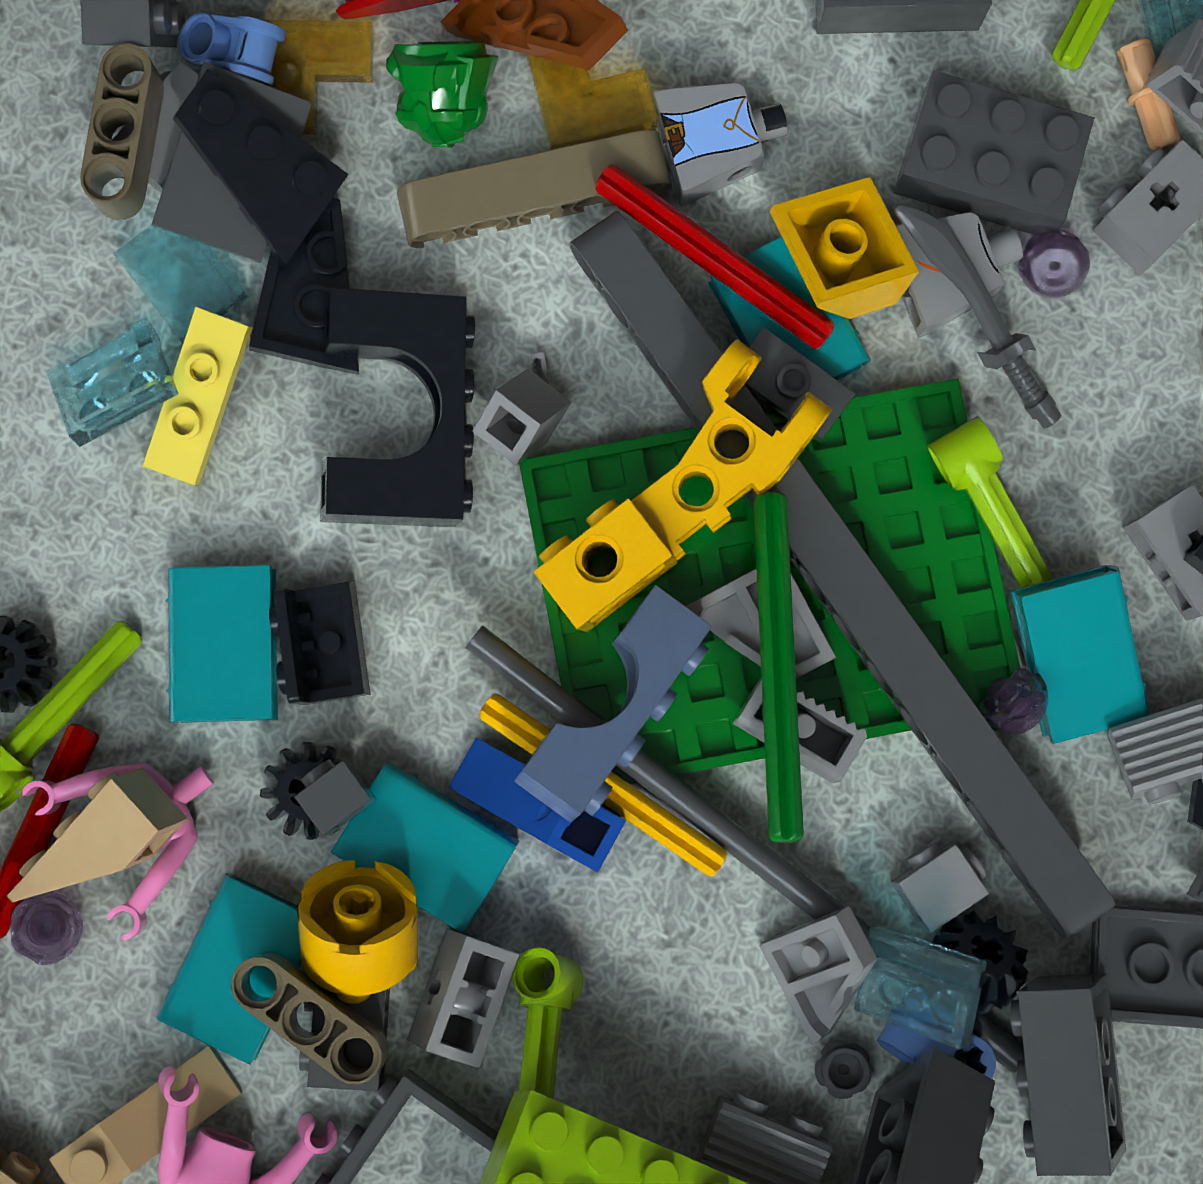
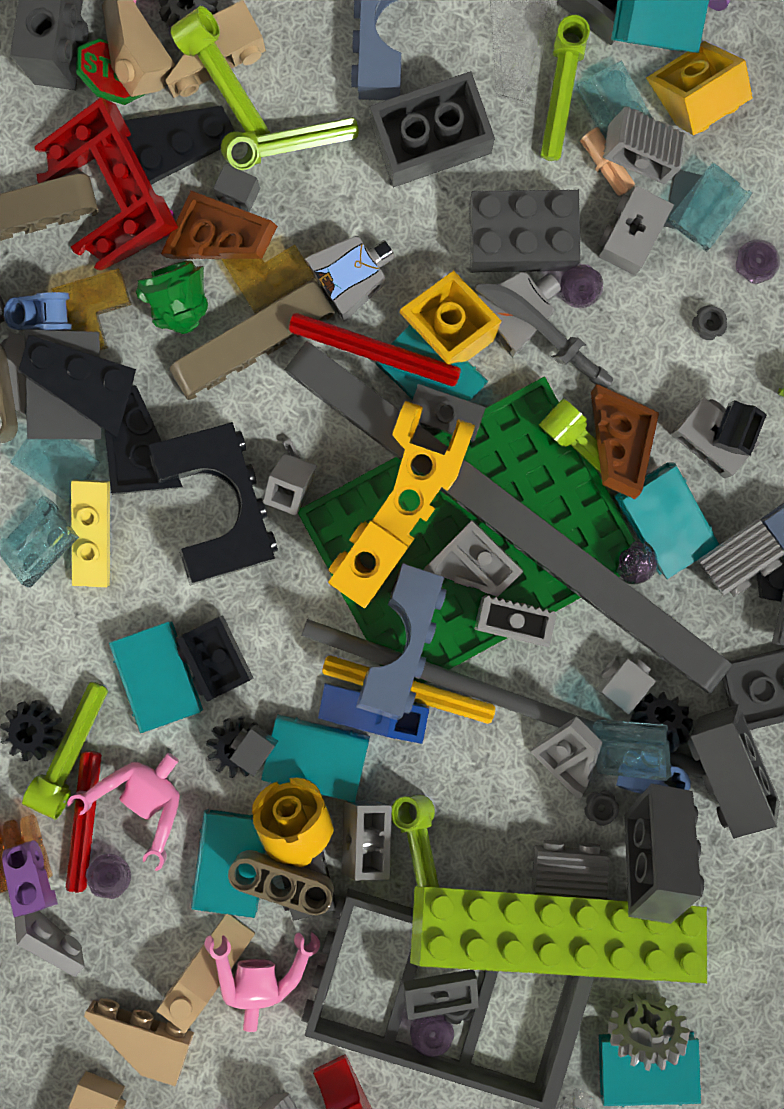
camera: 15 degrees left, 5 degrees up
(115, 831) = (130, 812): tan slope -> none
(778, 669) = (491, 592): green axle -> none
(1049, 508) = (623, 439): none -> dark orange wing

